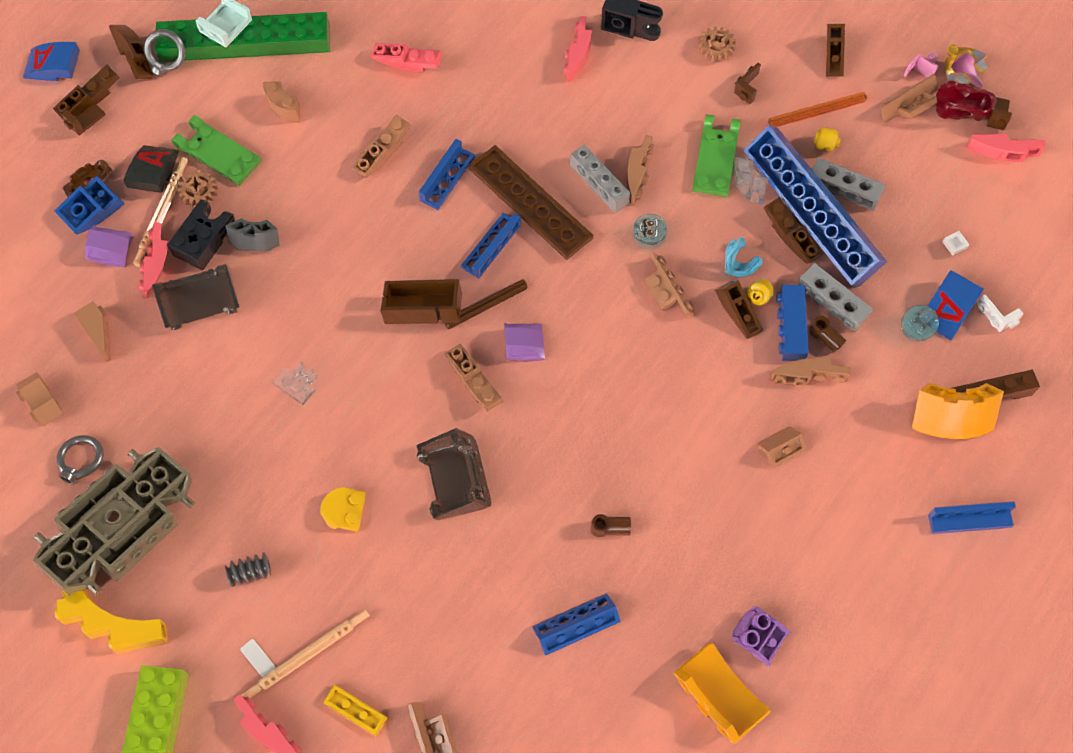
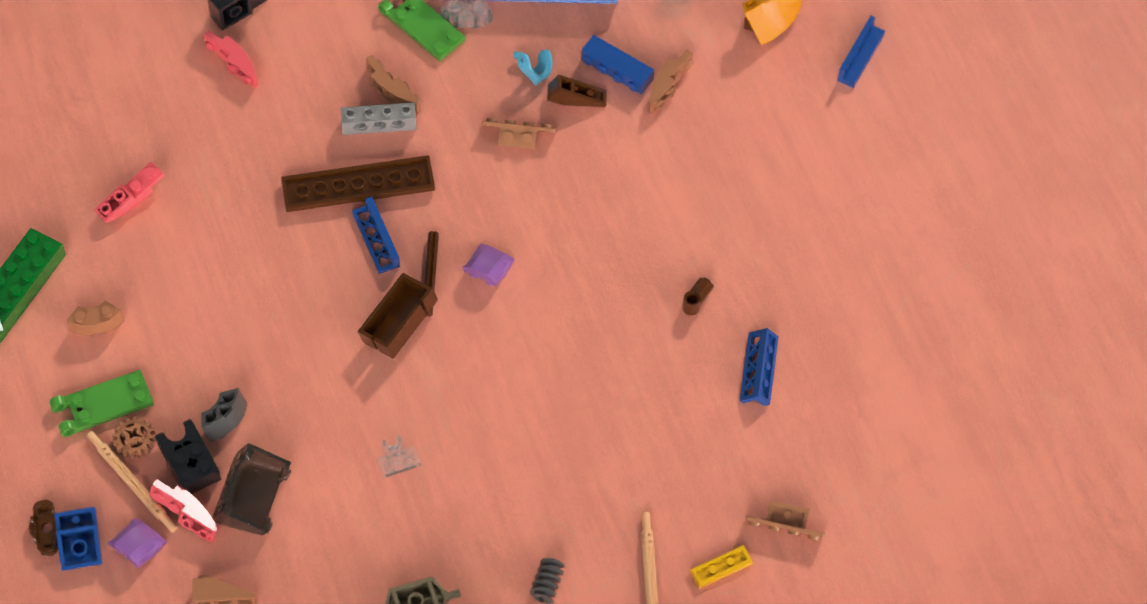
camera: 60 degrees left, 5 degrees down
(151, 168) = (79, 465): pearl dark grey slope -> none
(343, 508) = (542, 483): yellow slope -> none
(383, 148) = (211, 264): nougat slope -> none
(441, 170) = (276, 235): blue fence -> none
(455, 474) = (572, 383): clear smoke windscreen -> none
(473, 378) = (495, 321): nougat slope -> none
(650, 231) = (456, 113): clear light blue head -> none
(721, 693) = (883, 301): light orange panel -> none
(760, 292) = (574, 68): yellow head -> none
(760, 634) = (853, 247): medium lavender slope -> none
(783, 446) = (715, 138): nougat panel -> none
(792, 233) = (540, 15): reddish brown slope -> none
(828, 334) = (644, 47): reddish brown piece -> none
(845, 298) = (630, 19): light grey brick -> none

